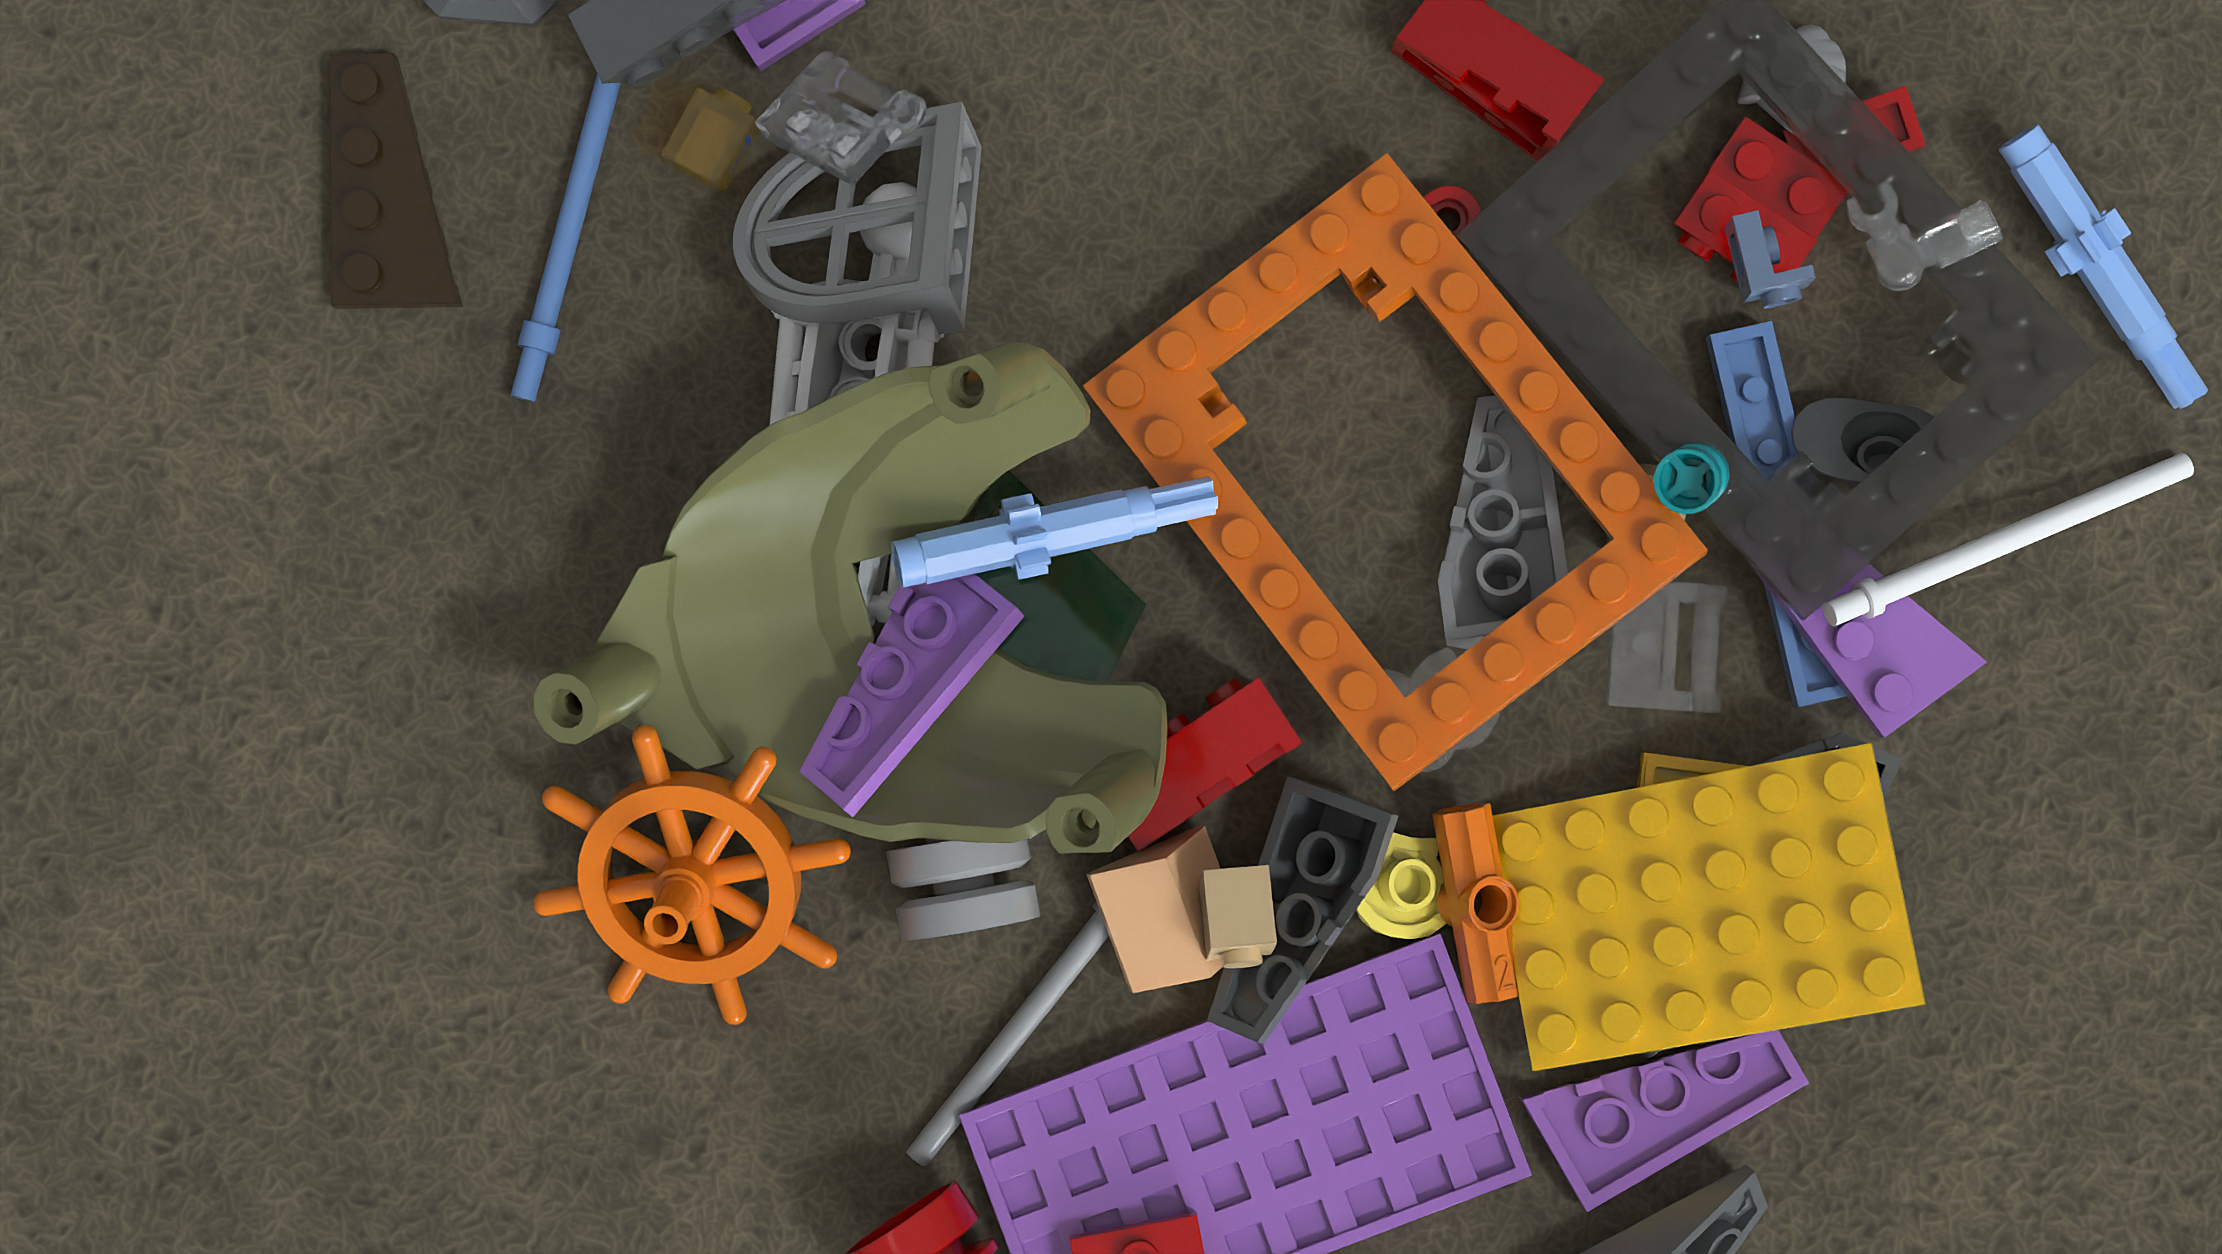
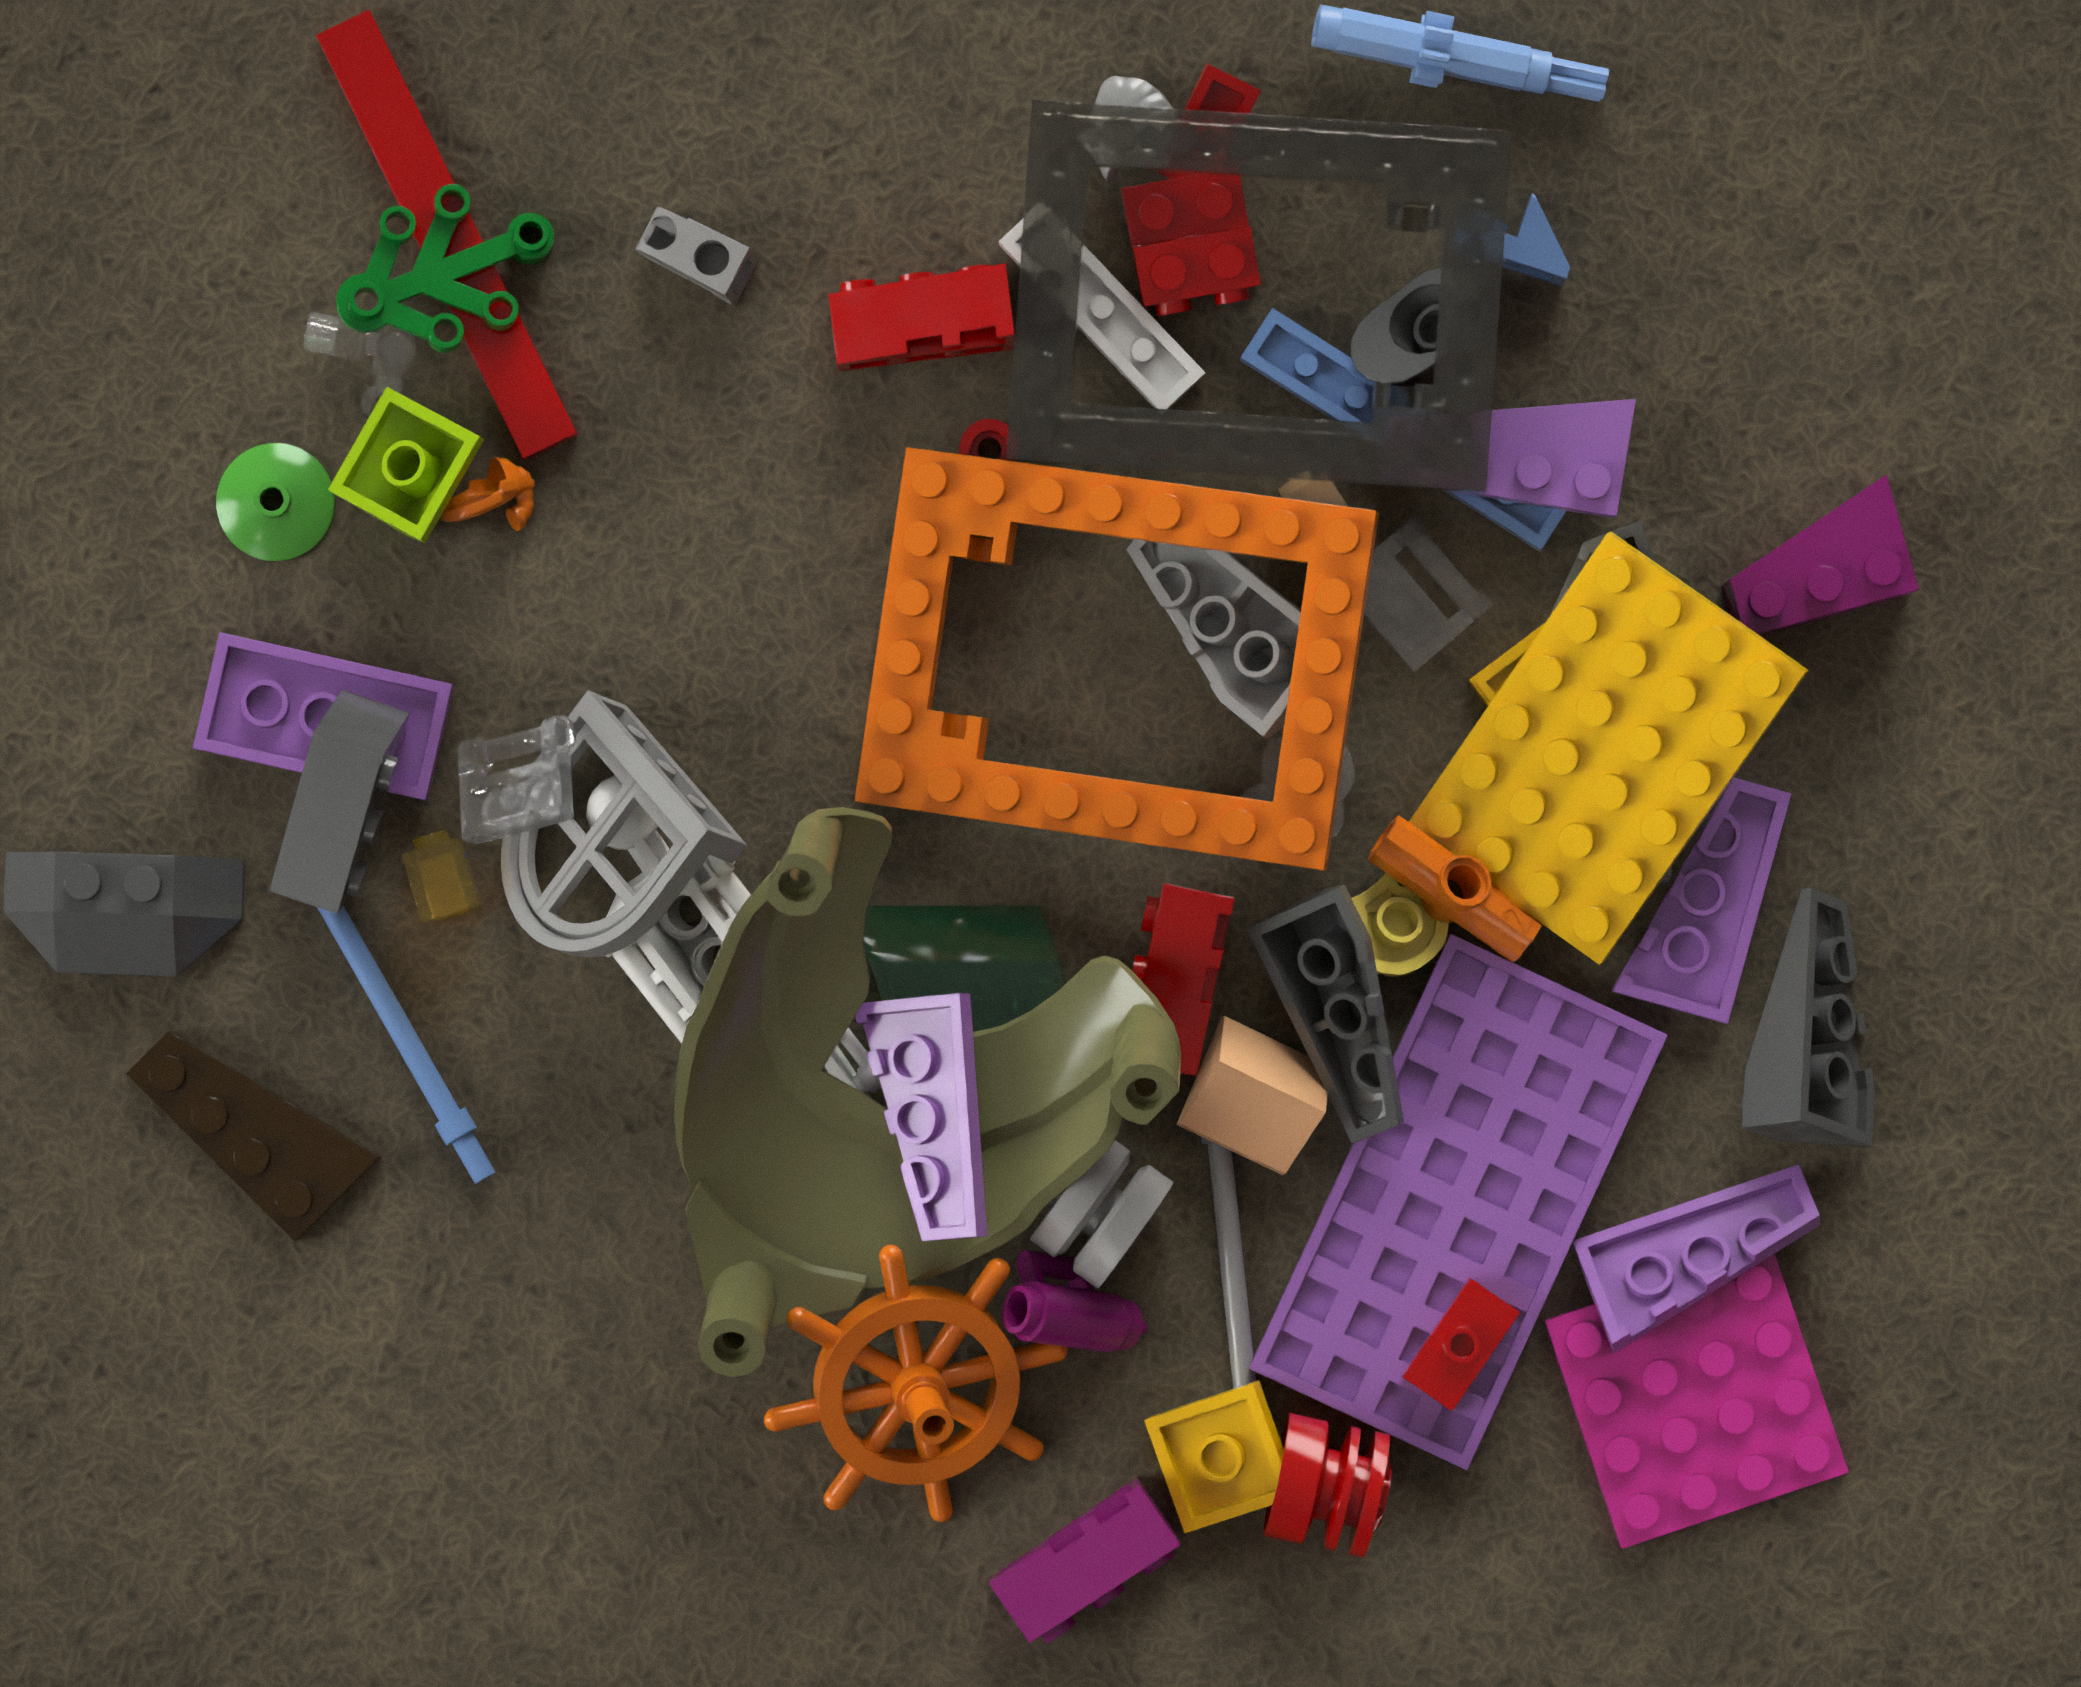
camera: 40 degrees left, 0 degrees up
(688, 1141) = (1085, 1562): none -> magenta wedge
(859, 938) = (1065, 1314): none -> magenta piece
(870, 1159) = (1218, 1455): none -> yellow plate
(1031, 534) = (922, 935): light blue piece -> none
(1237, 915) = (1303, 1053): tan brick -> none
(1640, 230) = (1125, 332): none -> white plate
(1682, 486) = (1318, 485): teal wheel -> none
(1753, 254) = (1217, 284): sand blue bracket -> none
(1871, 596) = (1515, 433): white bar -> none
(1901, 258) = (1317, 193): clear bar -> none
(2011, 939) = (1829, 568): none -> magenta wedge
(2019, 473) = (1535, 248): none -> medium blue slope

